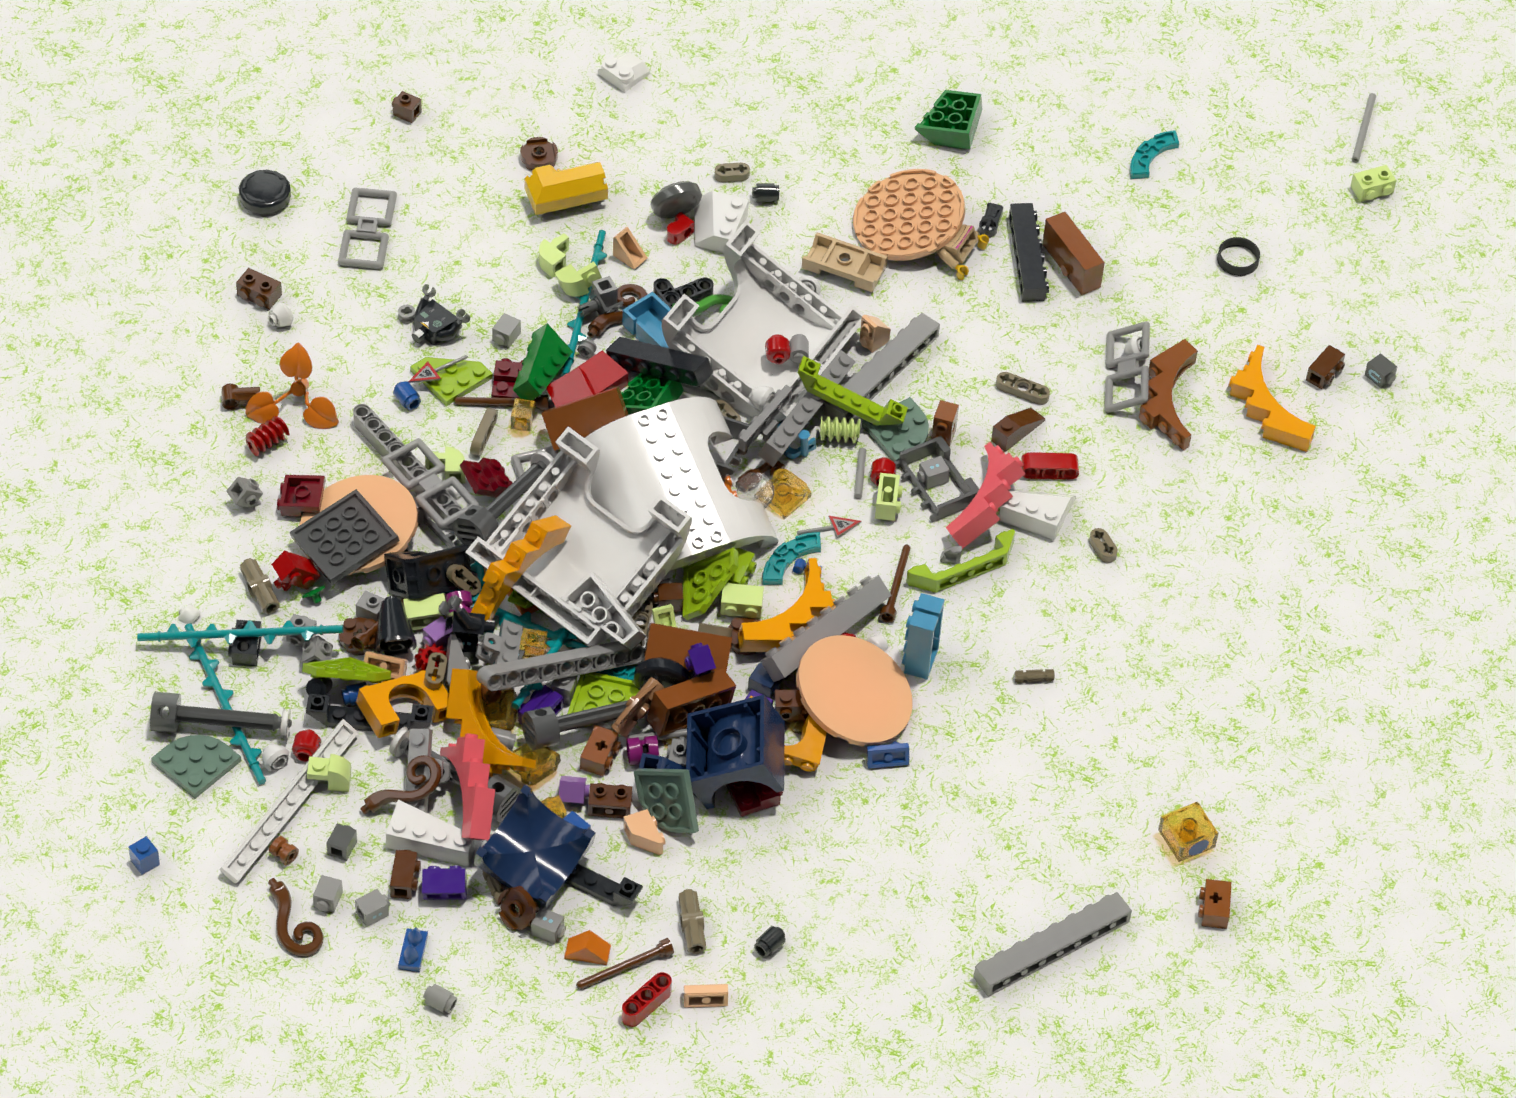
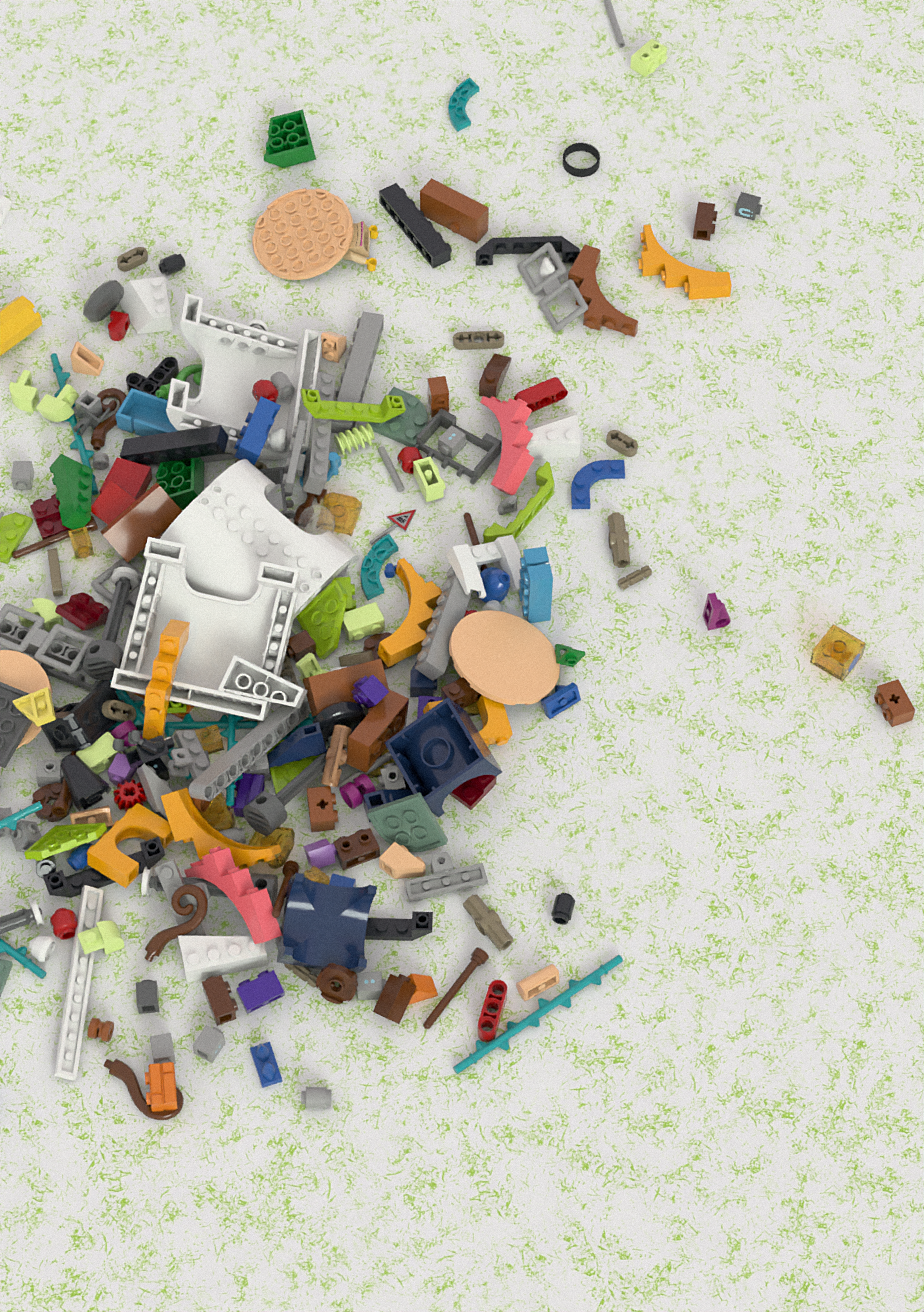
camera: 25 degrees left, 5 degrees up
(306, 923) = (162, 1087): none -> orange brick
(388, 540) = (37, 706): none -> light yellow wing
(439, 671) = (139, 805): dark tan beam -> none
(540, 791) = (289, 869): none -> reddish brown piece
(561, 944) = (395, 998): none -> reddish brown brick
(615, 682) = (302, 743): none -> dark blue slope
(676, 864) = (445, 879): none -> light grey plate
(680, 1026) = (533, 1019): none -> teal plant
(743, 380) = (256, 431): none -> blue wedge
(863, 265) = (254, 296): tan piece -> none
(871, 583) = (466, 558): none -> white wedge
(888, 621) = (495, 583): none -> blue hat
(921, 718) = (570, 657): none -> green bracket
(991, 218) = (368, 209): black piece -> none
(1040, 633) = (618, 540): none -> dark tan piece
(1049, 562) = (591, 474): none -> blue plate
(1052, 943) = (788, 800): light grey brick -> none
(1081, 308) = (525, 245): none -> black slope
(1091, 742) = (715, 613): none -> magenta plate

